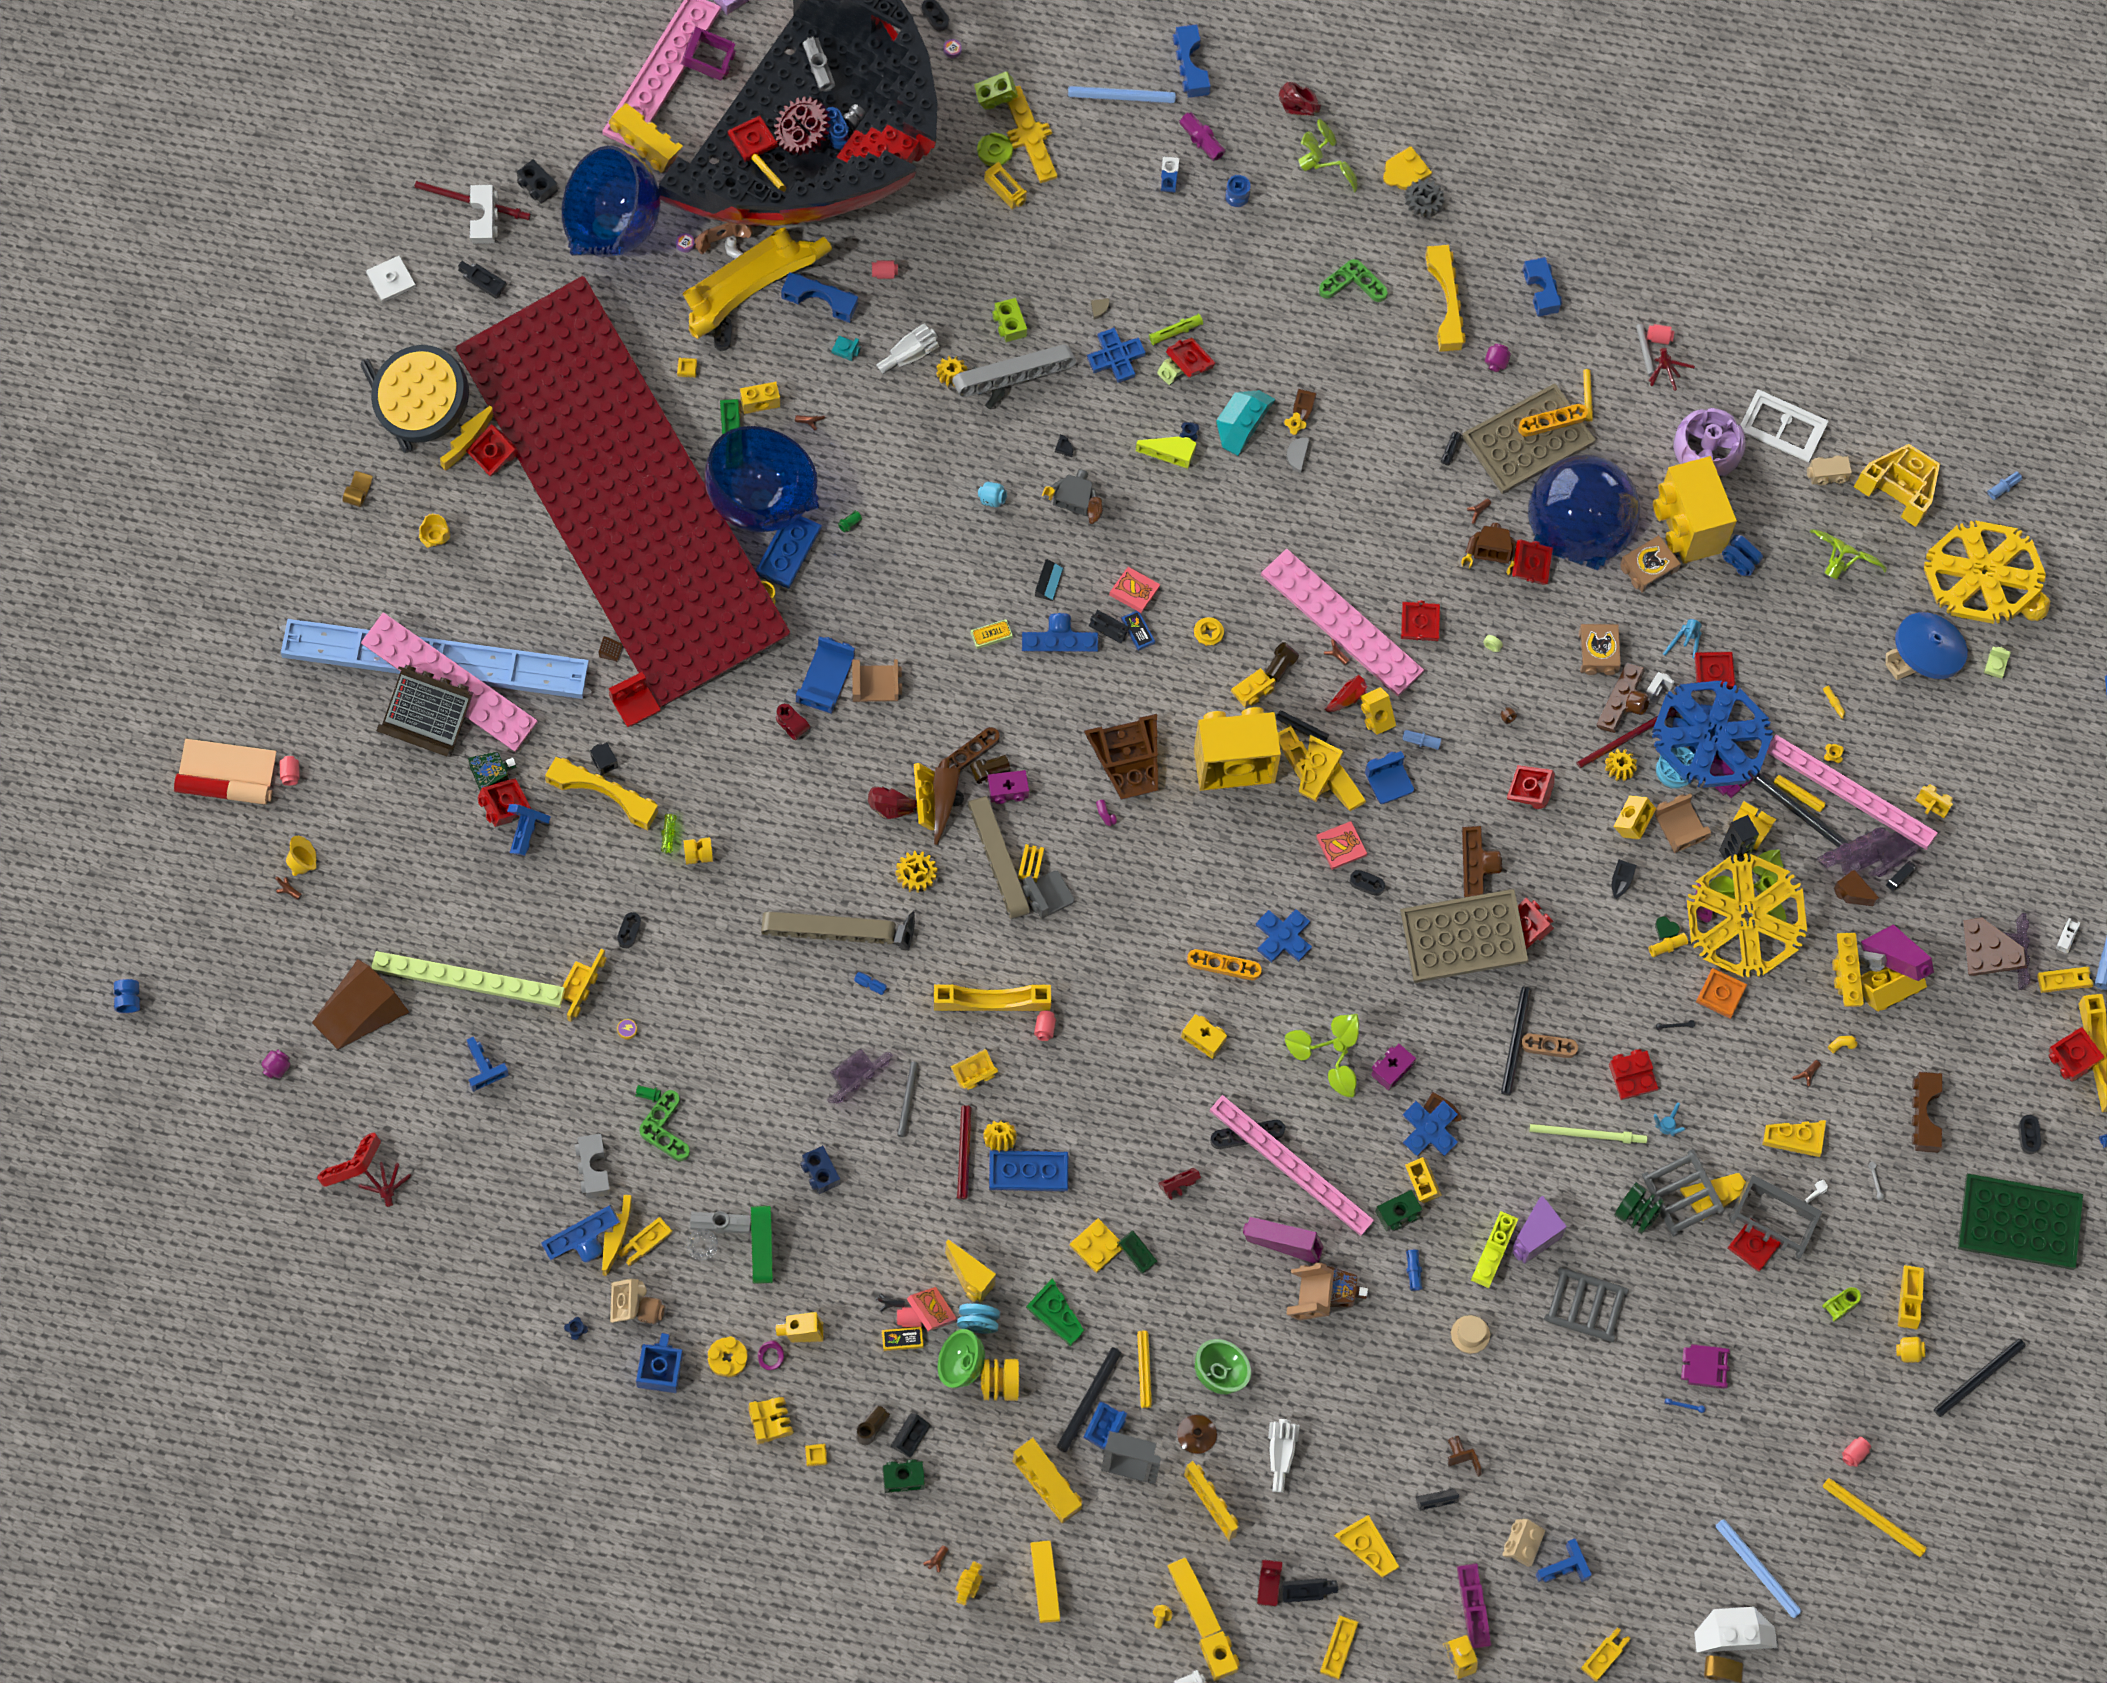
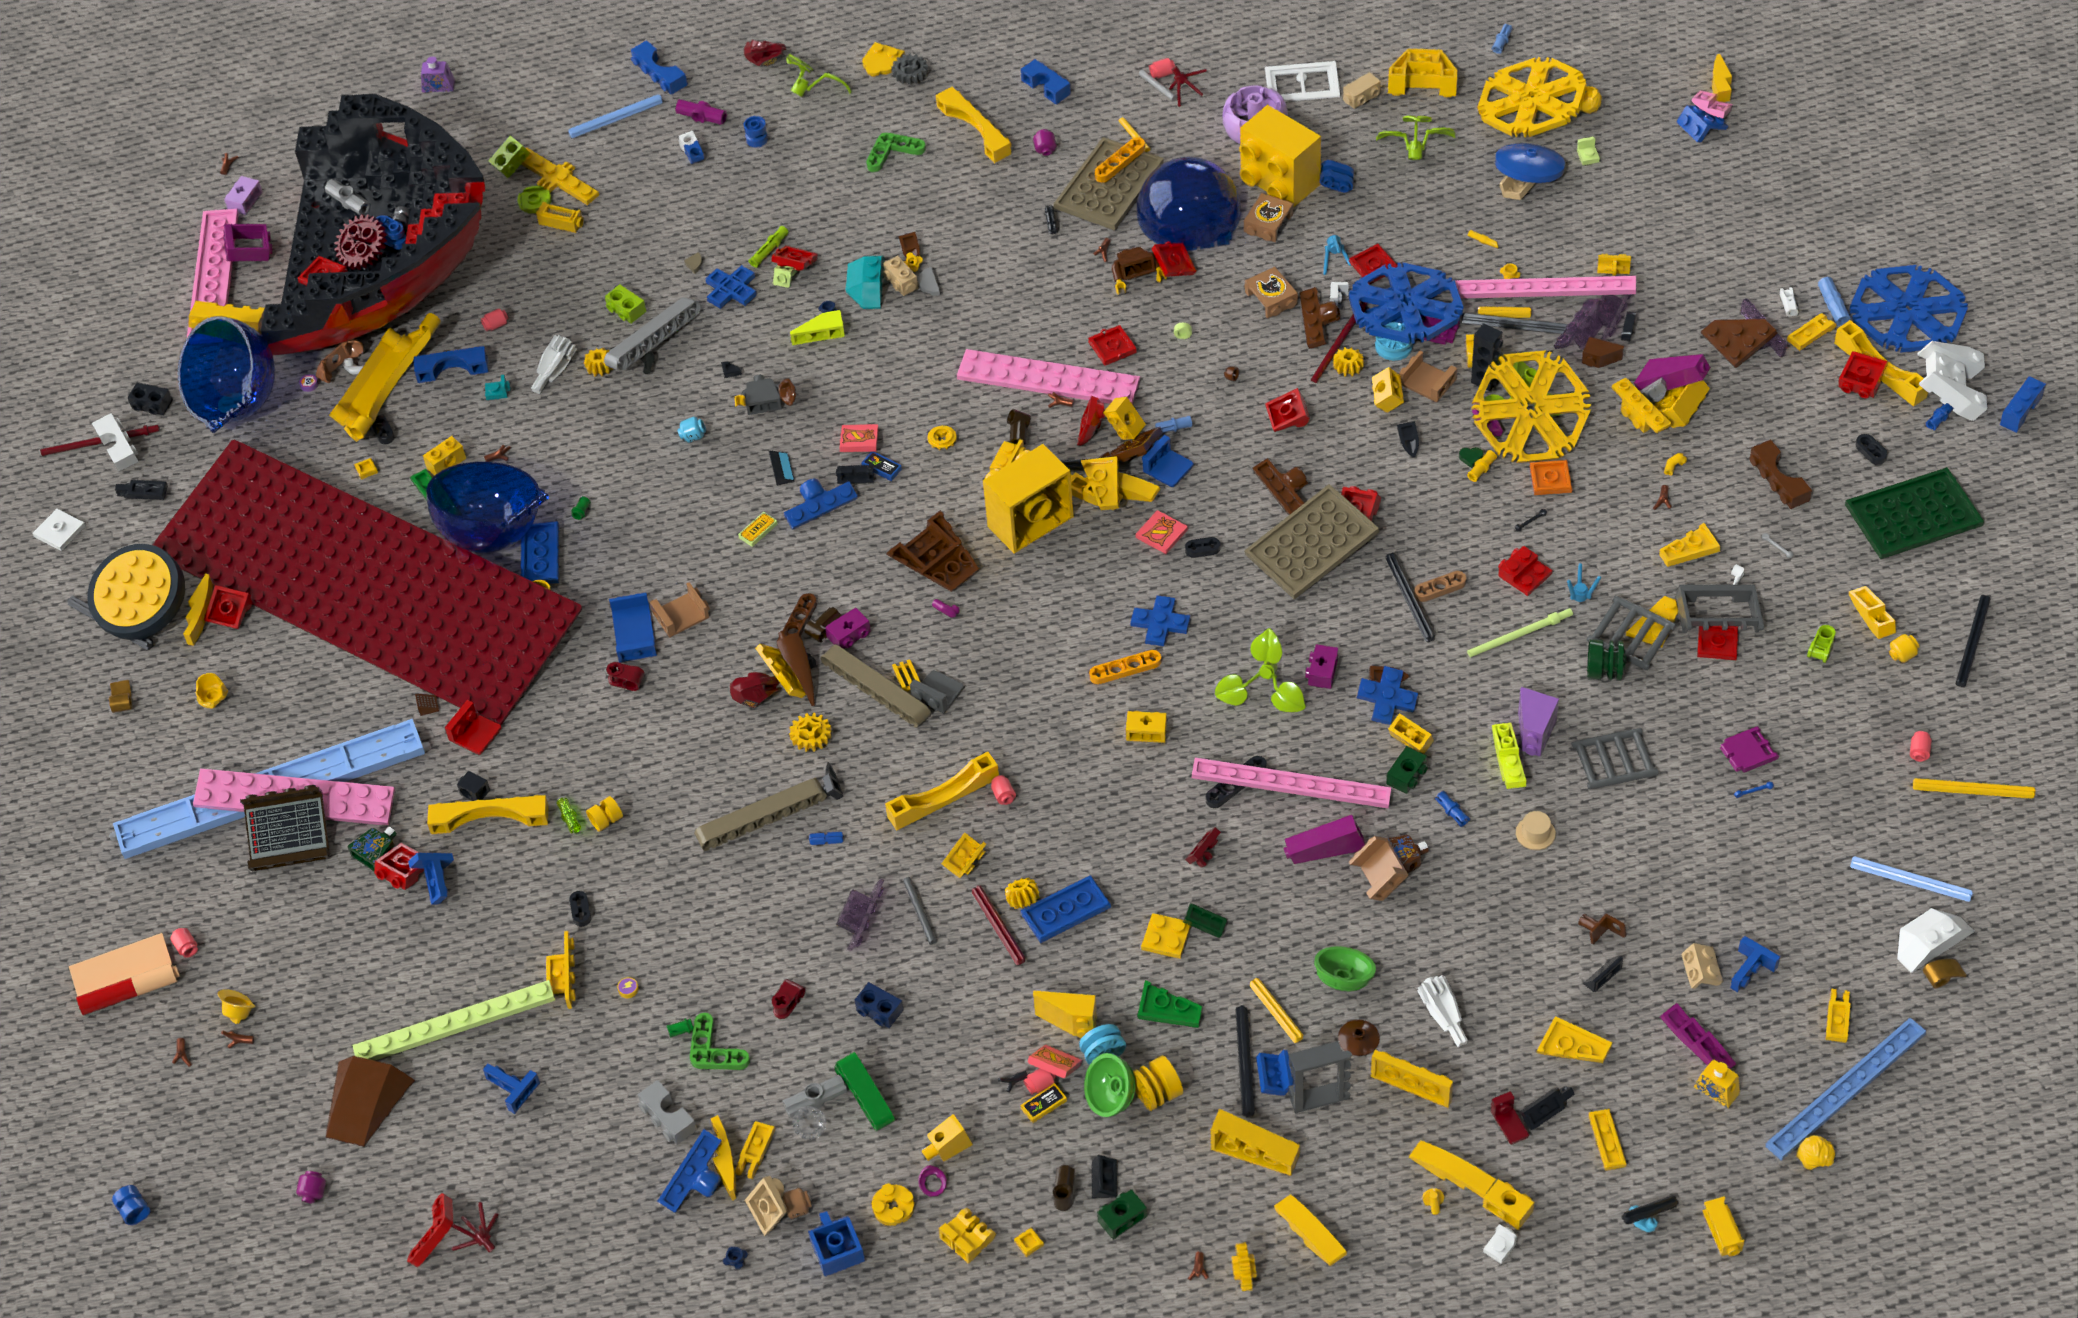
camera: 20 degrees left, 15 degrees down
(235, 875) = (180, 1052): none -> copper bar
(752, 1116) = (787, 998): none -> dark red piece
(1274, 434) = (900, 275): none -> tan brick
(1367, 745) = (1138, 446): none -> reddish brown plate

